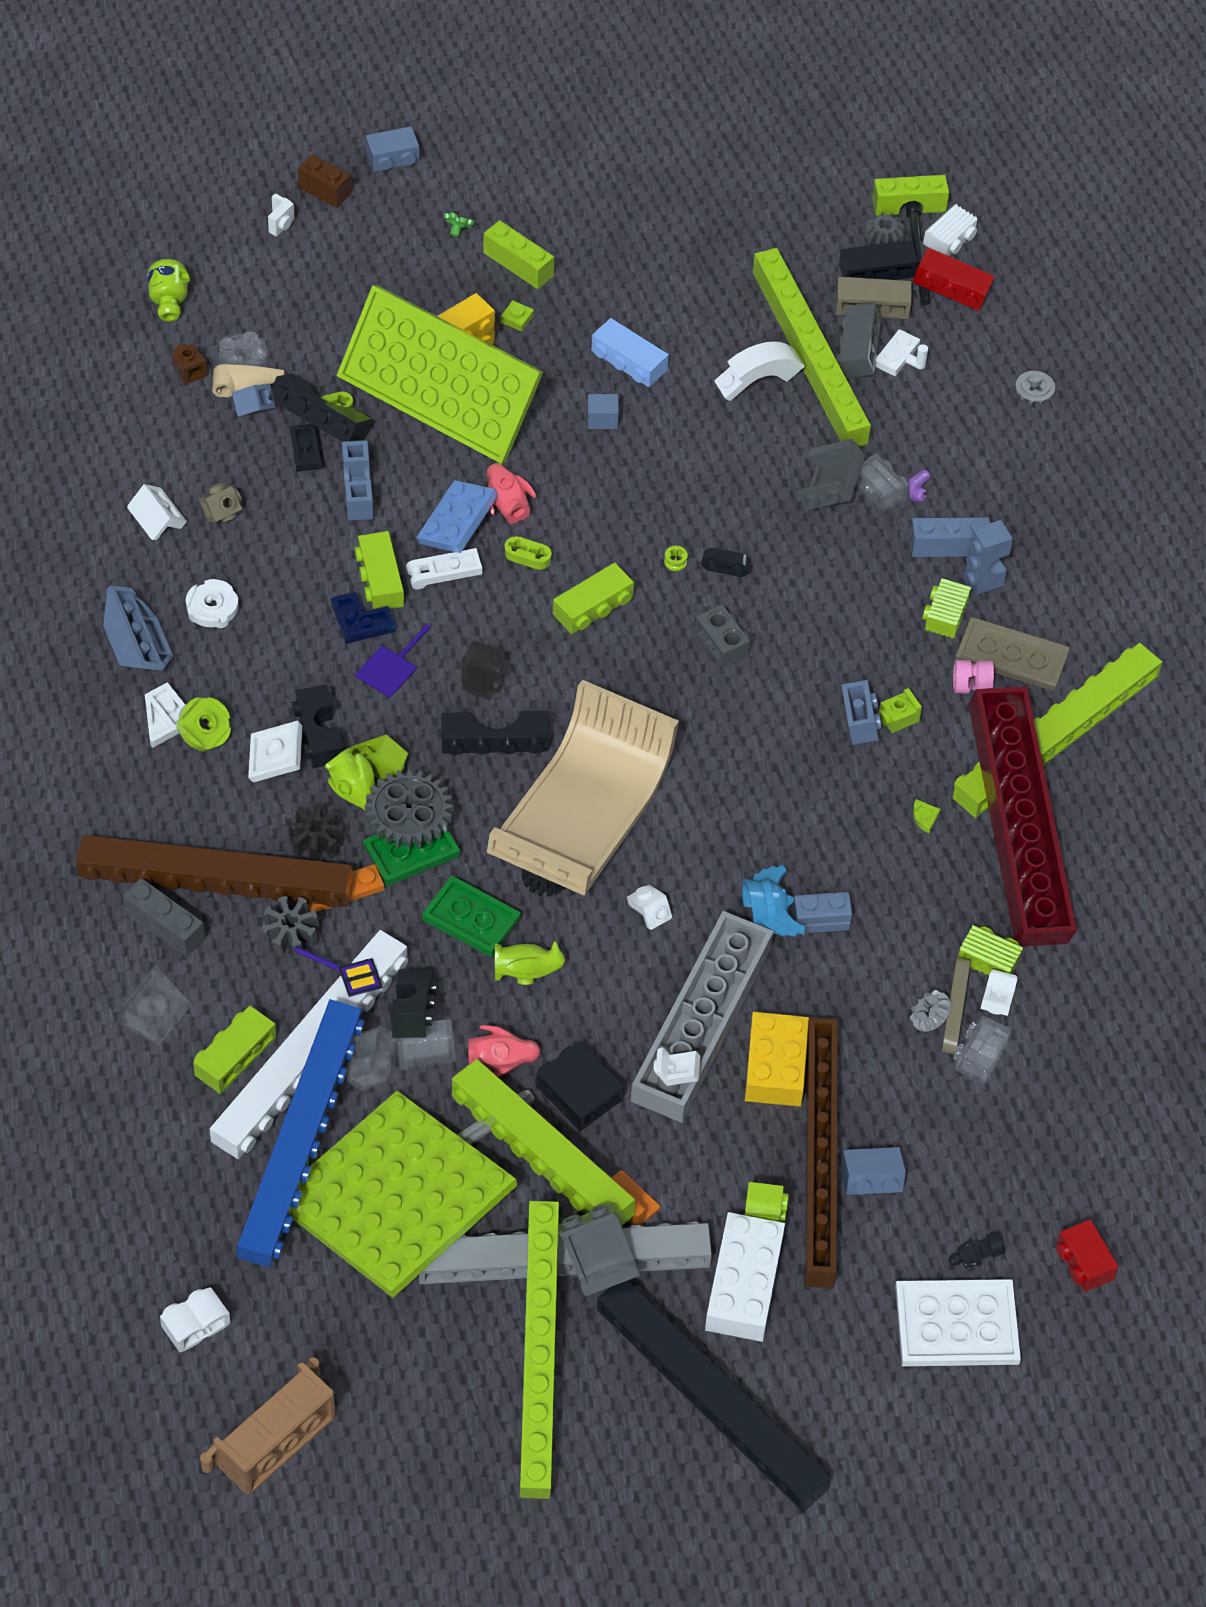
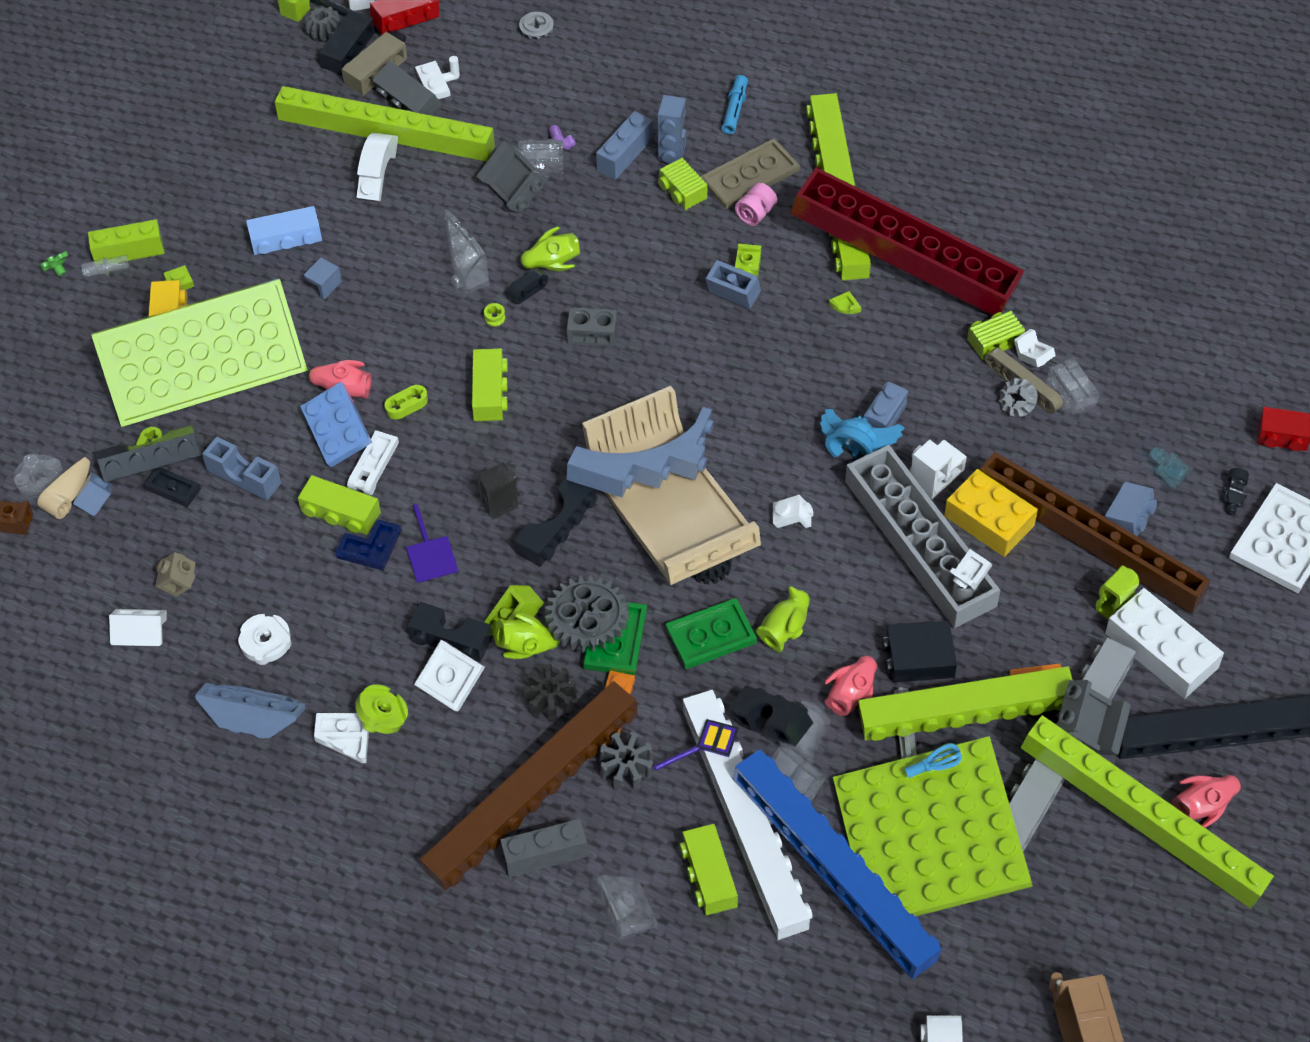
camera: 50 degrees left, 0 degrees up
(449, 1147) = (929, 764): none -> dark azure piece
(484, 257) = (104, 266): none -> clear axle
(598, 766) = (618, 471): none -> sand blue arch
(601, 1396) = (1206, 796): none -> coral animal
(711, 497) = (466, 257): none -> clear wedge
(777, 556) = (552, 251): none -> lime animal
(788, 988) = (936, 466): none -> white brick
(958, 1181) = (1171, 466): none -> clear light blue plate
(1108, 584) = (736, 98): none -> dark azure pin

